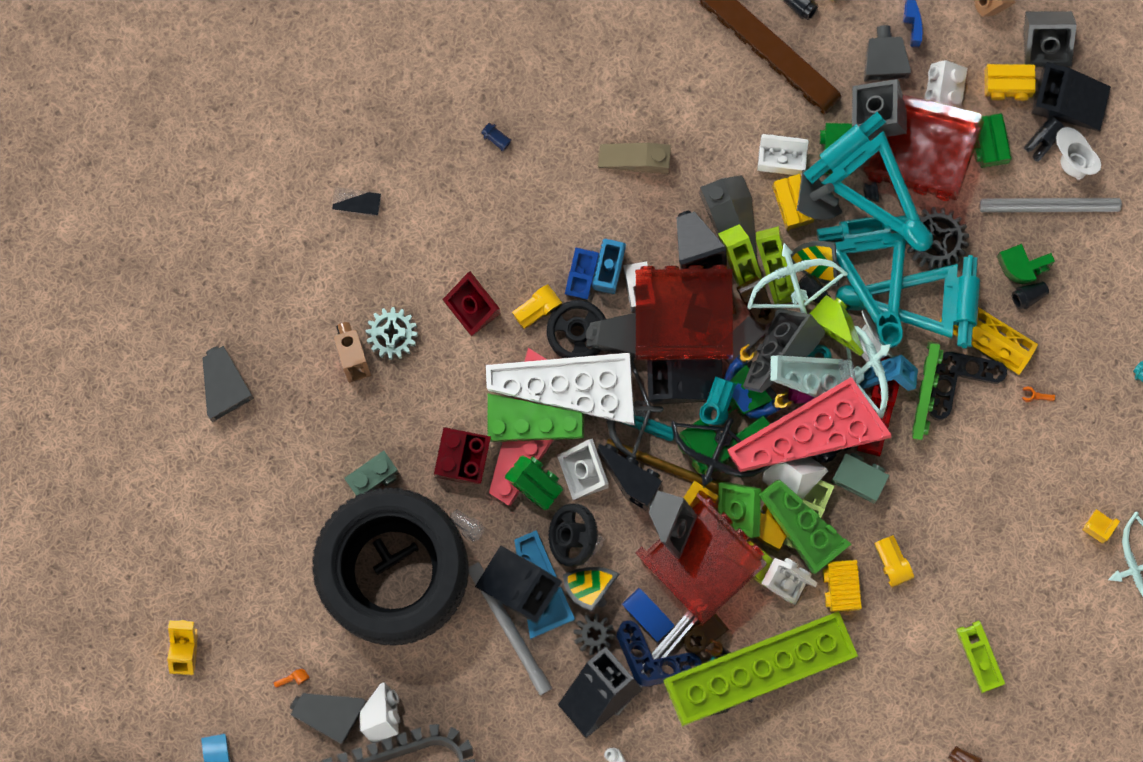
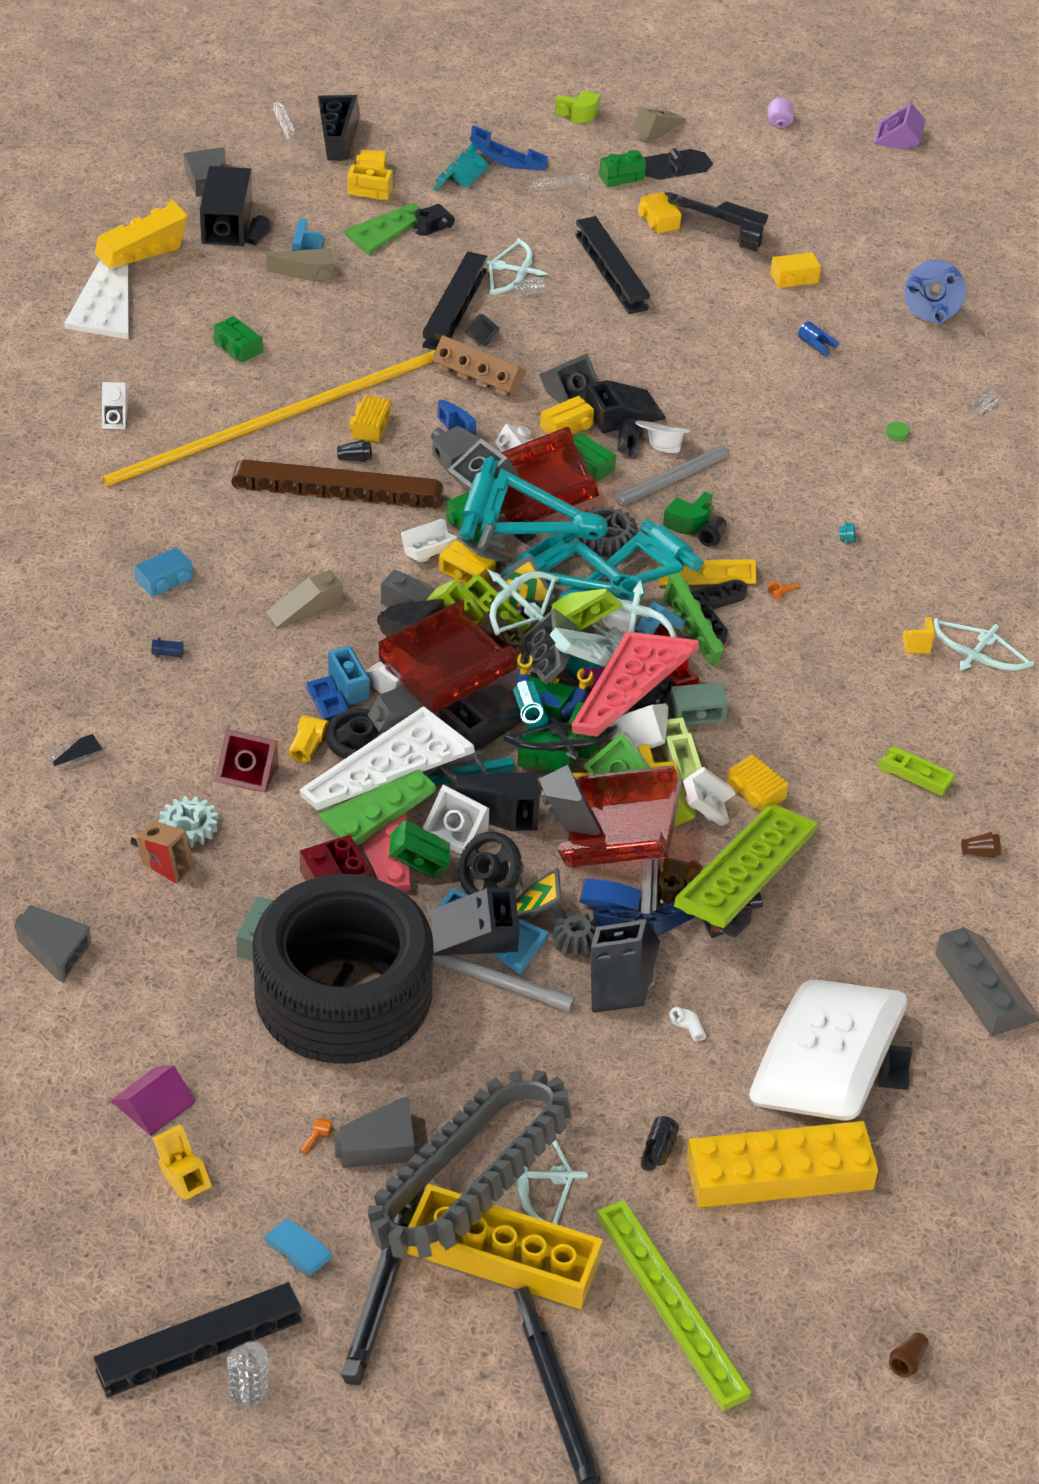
camera: 40 degrees left, 35 degrees down
(204, 571) = (155, 1098): none -> magenta slope
(380, 714) = (434, 1100): white slope -> none
(547, 51) = (164, 572): none -> dark azure brick
(808, 533) = (682, 747): bright green wing -> none
(894, 563) = (787, 749): yellow piece -> none

